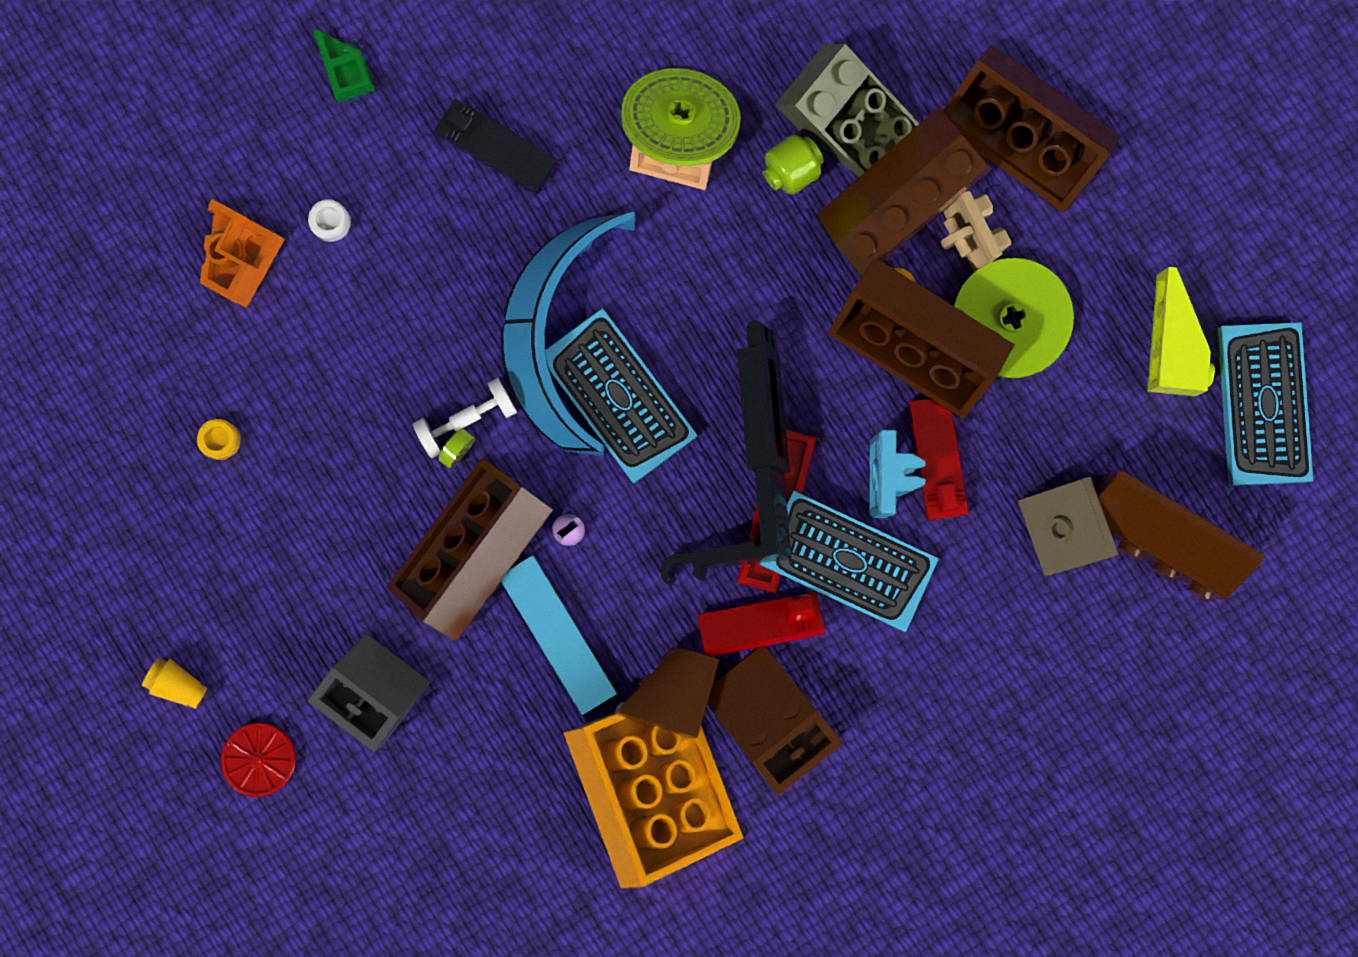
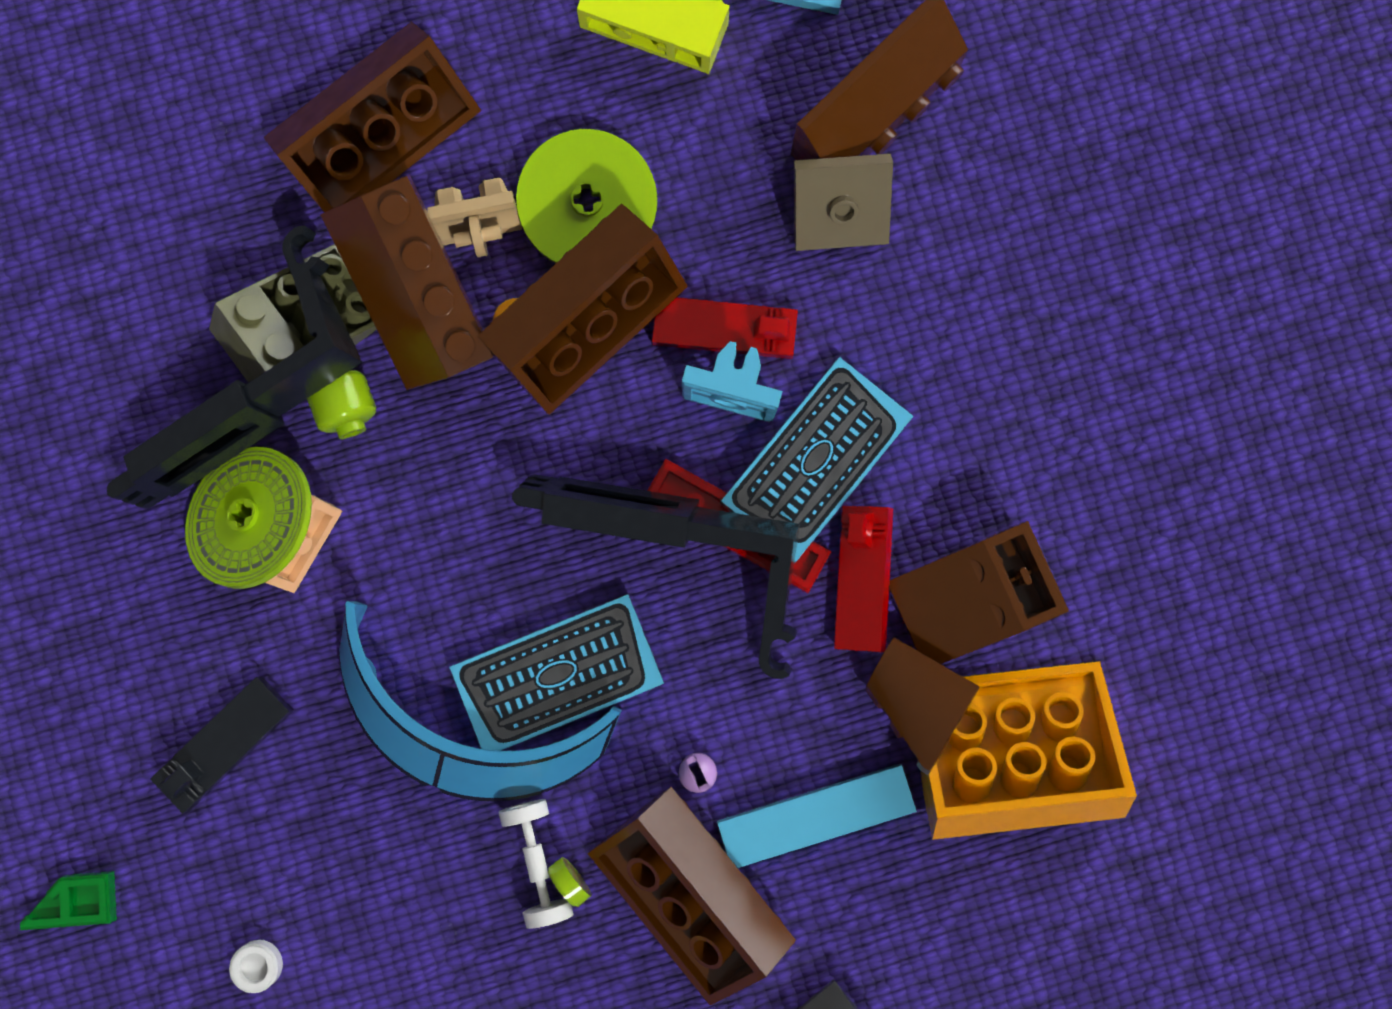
camera: 75 degrees left, 0 degrees up
(765, 93) = (244, 411): none -> black hinge

